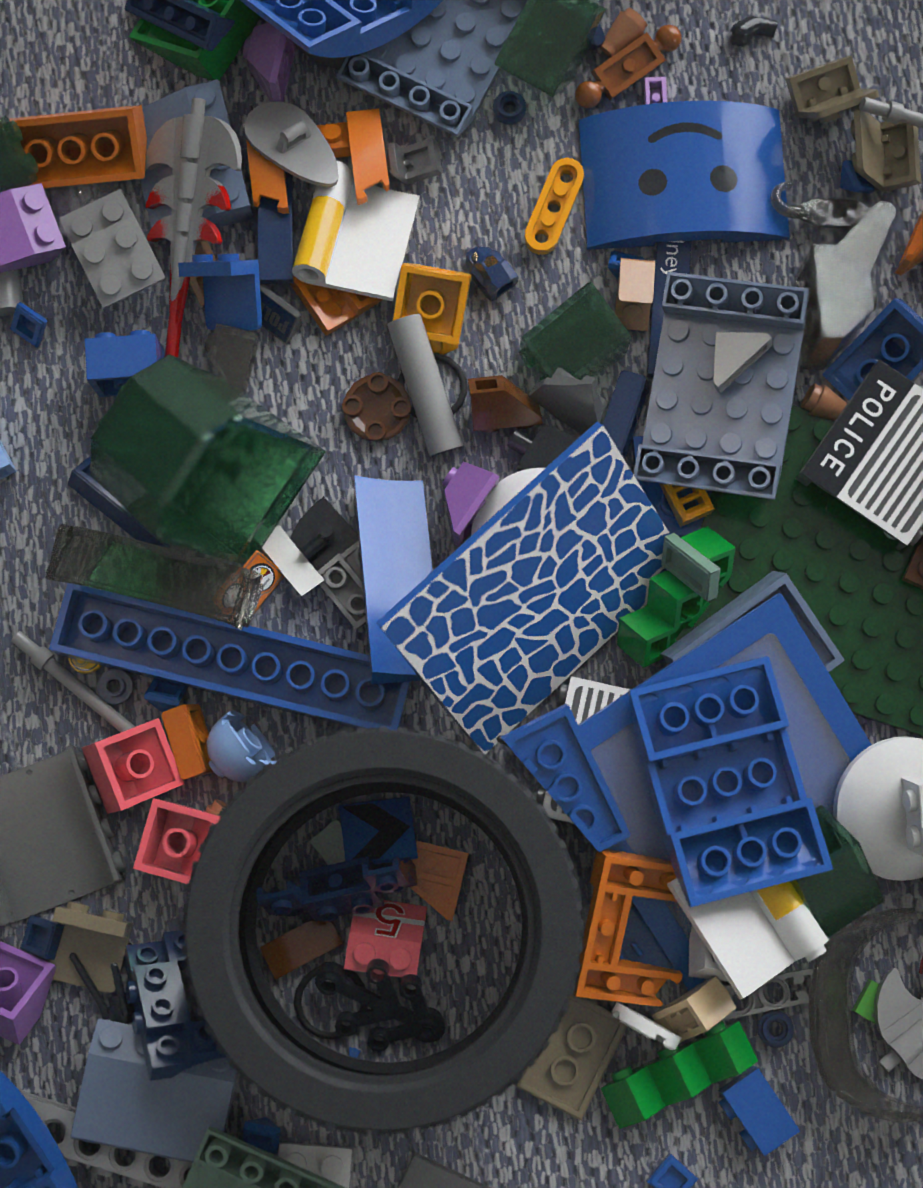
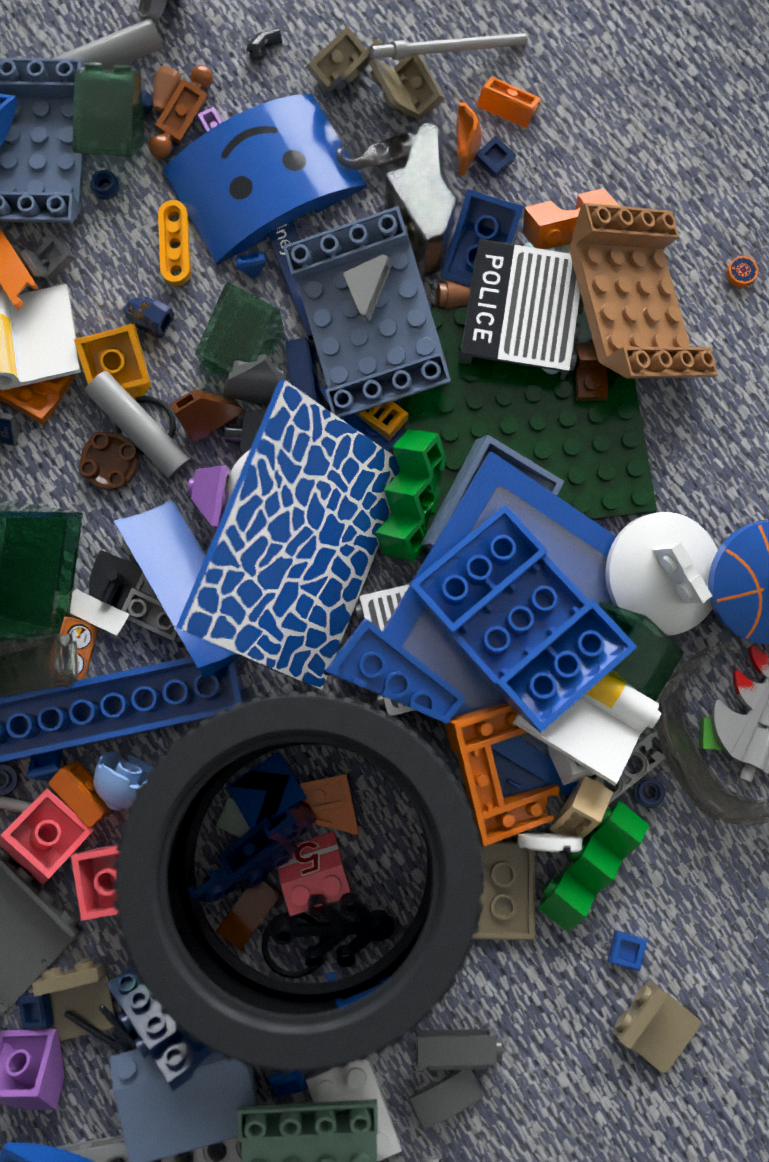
camera: 25 degrees left, 0 degrees up
(635, 293) = (268, 278): slope -> none
(690, 566) = (411, 465): sand green tile -> none
(758, 1111) = (668, 863): blue brick -> none
(854, 181) = (394, 118): blue slope -> none

